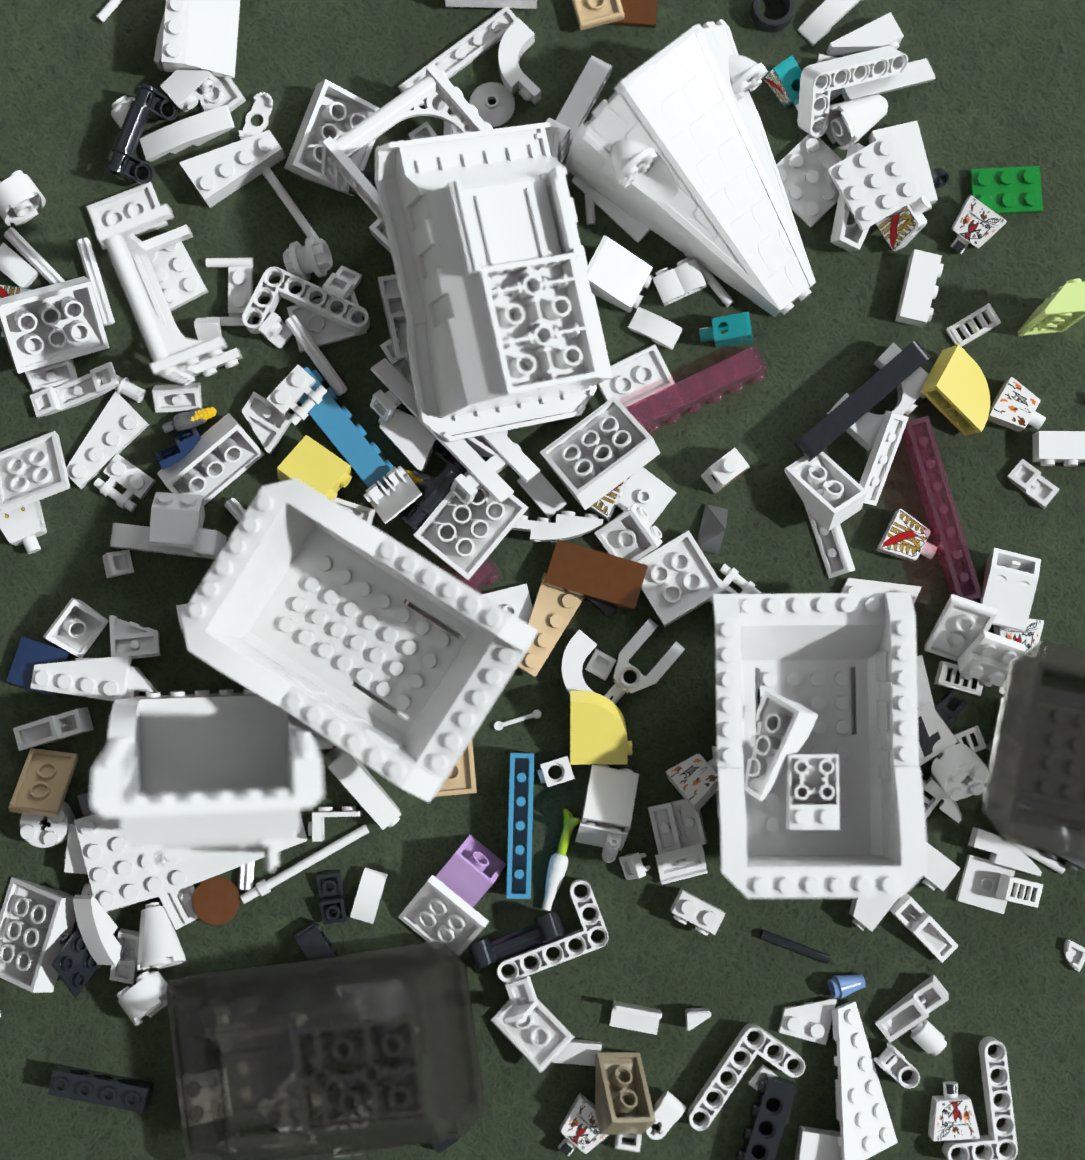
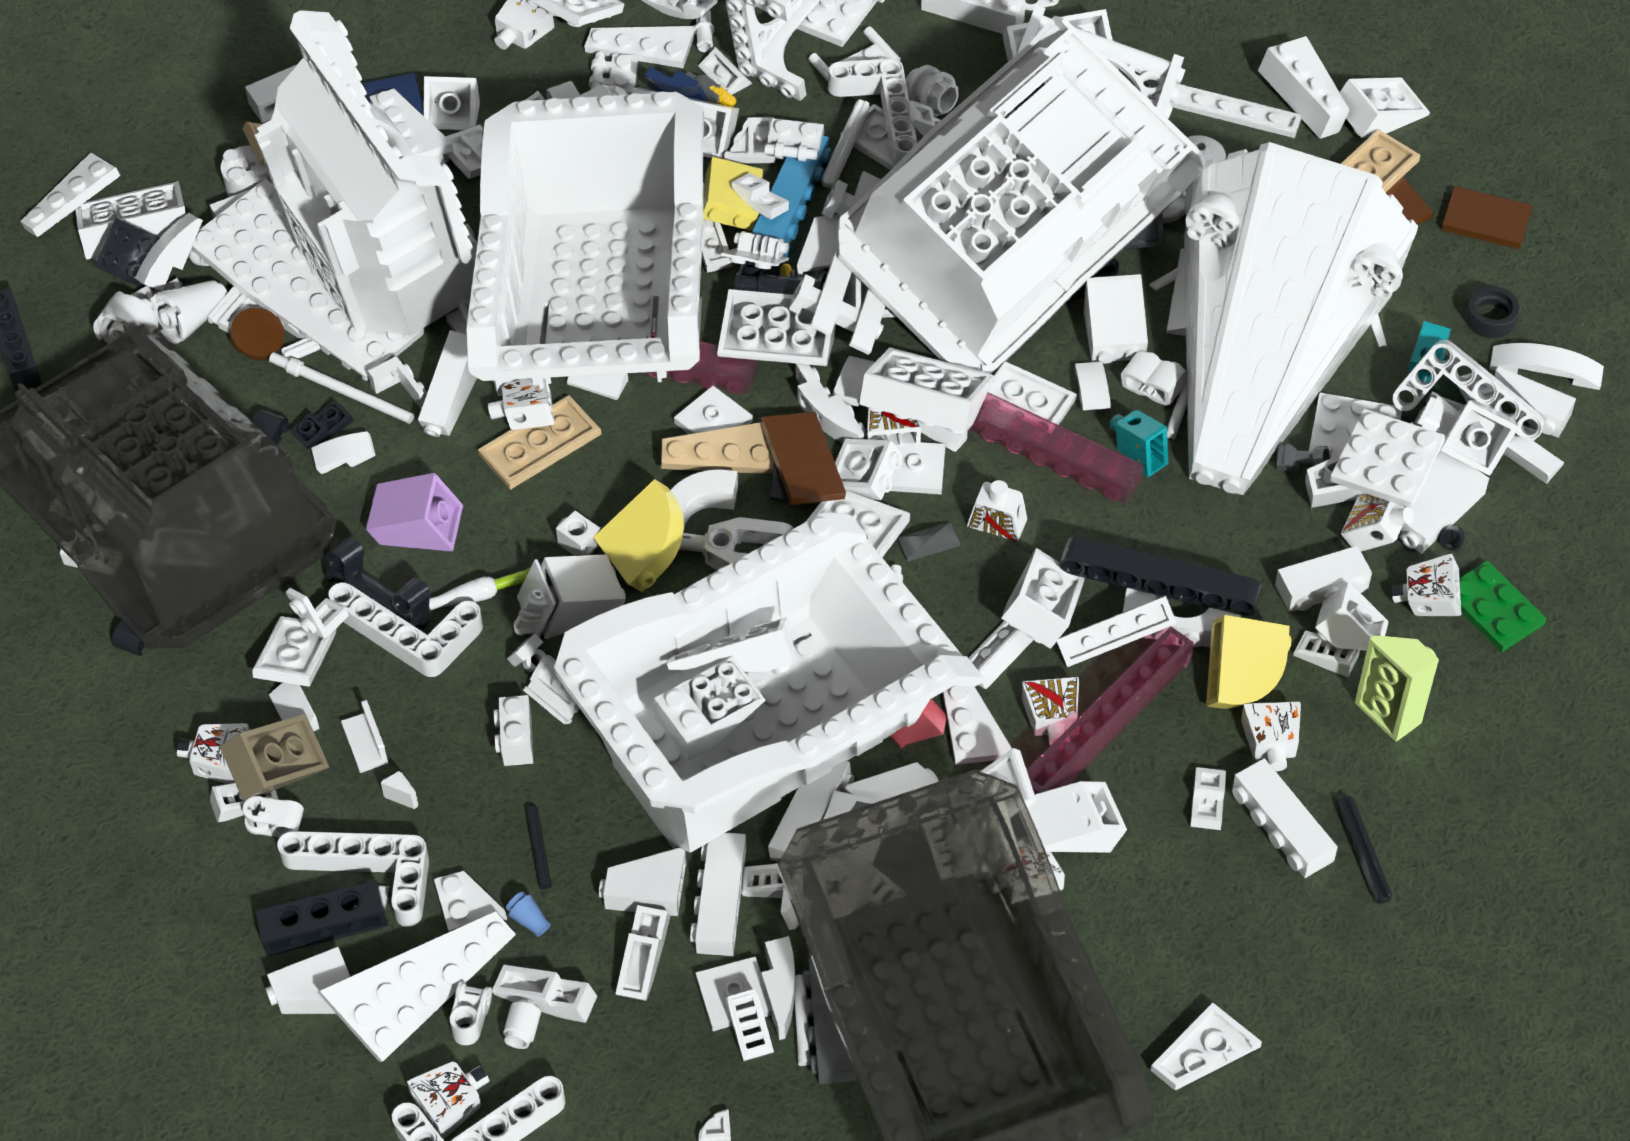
camera: 60 degrees right, 30 degrees down
(207, 328) = (805, 58): white slope -> none
(275, 330) = (843, 100): white bracket -> none
(289, 203) = (974, 58): white bar -> none
(338, 457) = (757, 195): none -> white slope
(443, 916) = (363, 503): white plate -> none
(499, 725) = (591, 471): white hinge -> none
(512, 46) = (1260, 132): white arch -> none
(520, 826) = (500, 529): dark azure brick -> none
(600, 664) = (714, 515): white tile -> none
(810, 235) = (1291, 459): none -> dark grey leg
(893, 101) = (1480, 436): none -> white slope
(970, 297) = (1349, 619): none -> white slope

